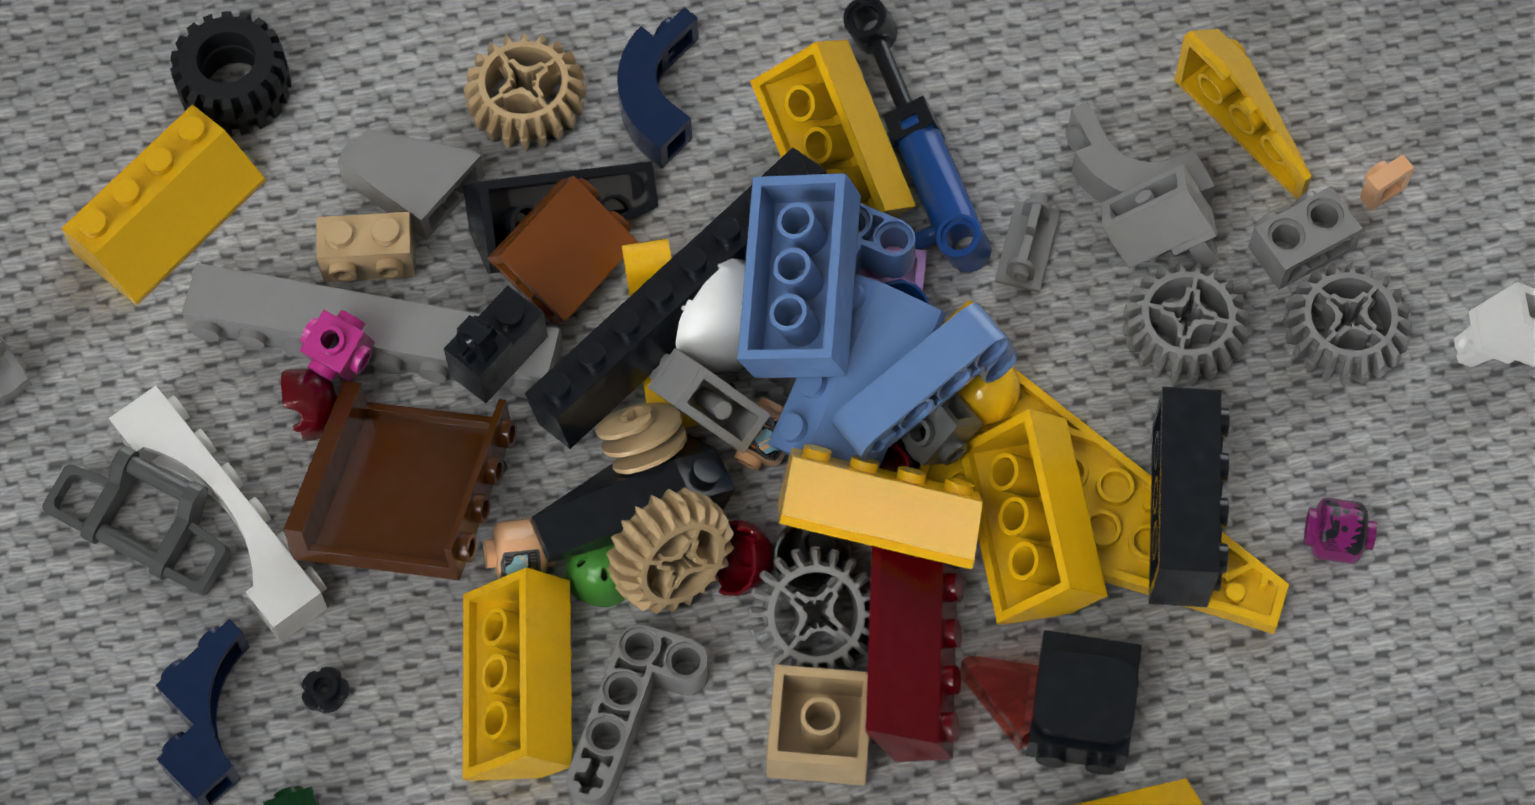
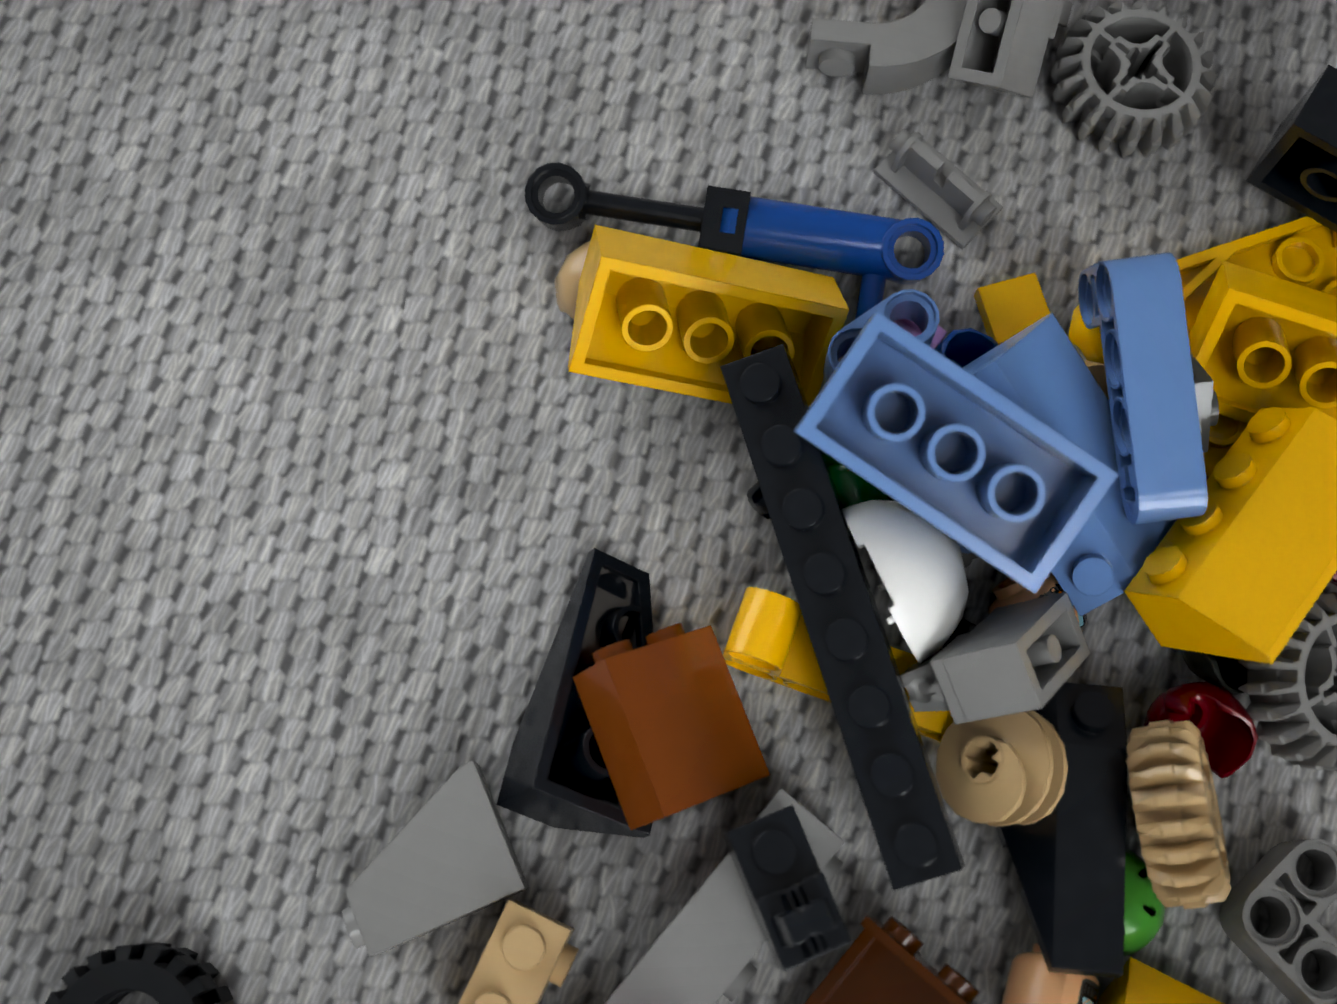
camera: 65 degrees left, 10 degrees up
(518, 112) = (367, 654): tan gear -> none
(648, 116) = (500, 518): dark blue arch -> none

